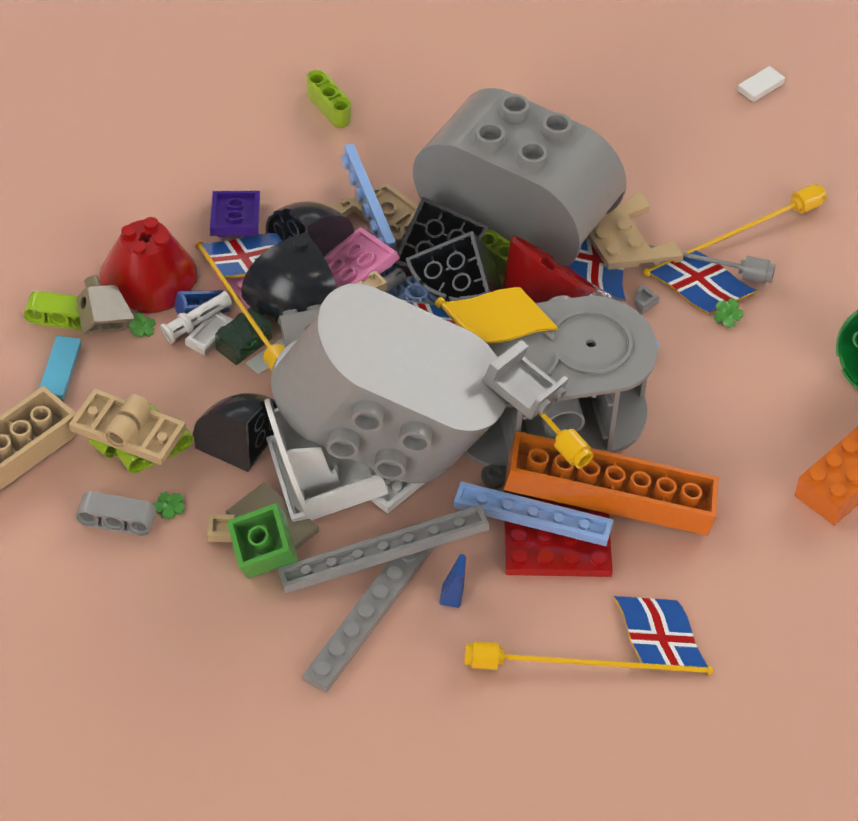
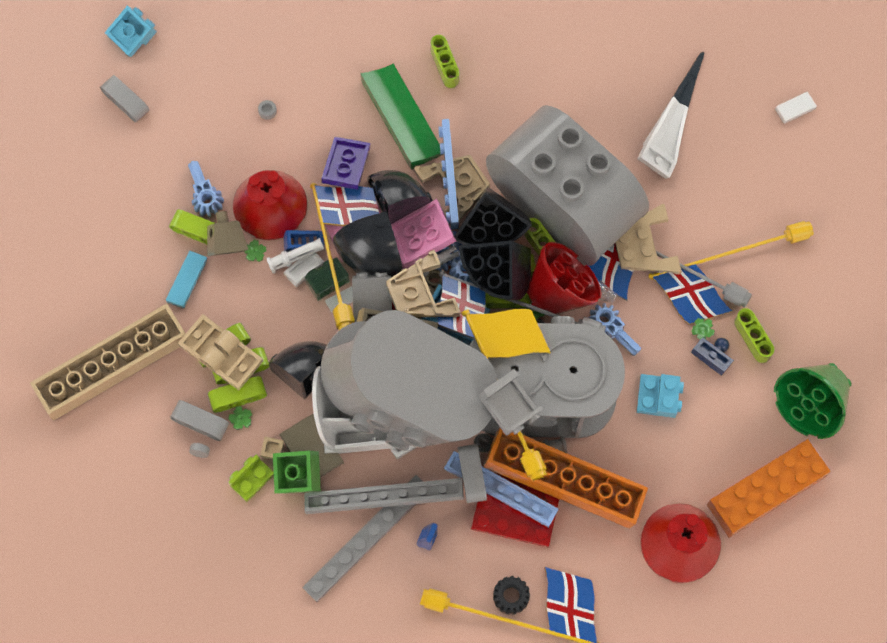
camera: 15 degrees right, 20 degrees up
(62, 274) = (204, 192): none -> light blue gear
(119, 180) = (267, 109): none -> light grey tile
(124, 546) = (199, 450): none -> light grey tile
(152, 479) = (229, 397): none -> lime beam
(200, 565) = (250, 477): none -> lime bracket
(289, 159) = (401, 115): none -> green arch
(493, 496) = (472, 473): none -> light grey beam
(577, 645) = (520, 586): none -> black tyre
(619, 121) = (663, 143): none -> white plate
(645, 299) = (642, 301): light grey tile -> none
(699, 389) = (659, 395): none -> medium azure plate
(749, 335) = (713, 354): none -> dark blue plate
(777, 536) = (680, 543): none -> red cone
(792, 308) = (753, 344): none -> lime beam

